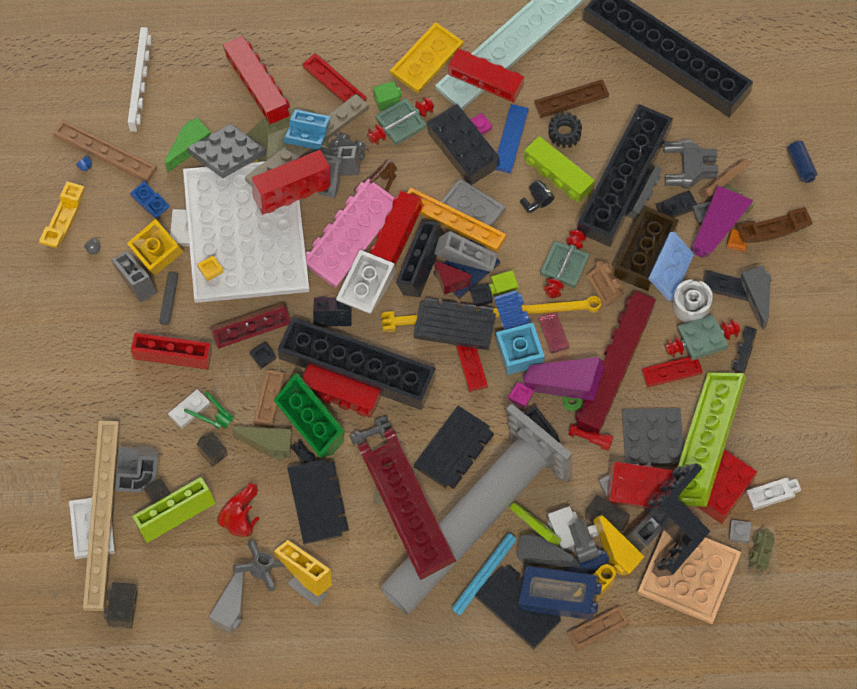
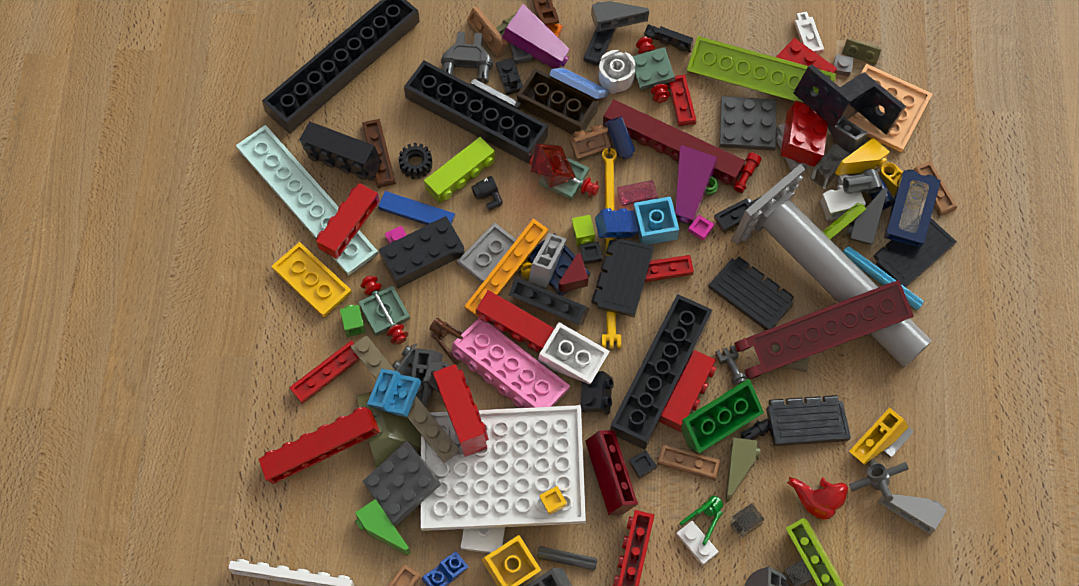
camera: 85 degrees left, 0 degrees up
(559, 59) = (340, 151): none -> black brick
(569, 246) = (552, 164): none -> clear red slope
(611, 308) = (620, 137): none -> dark blue brick

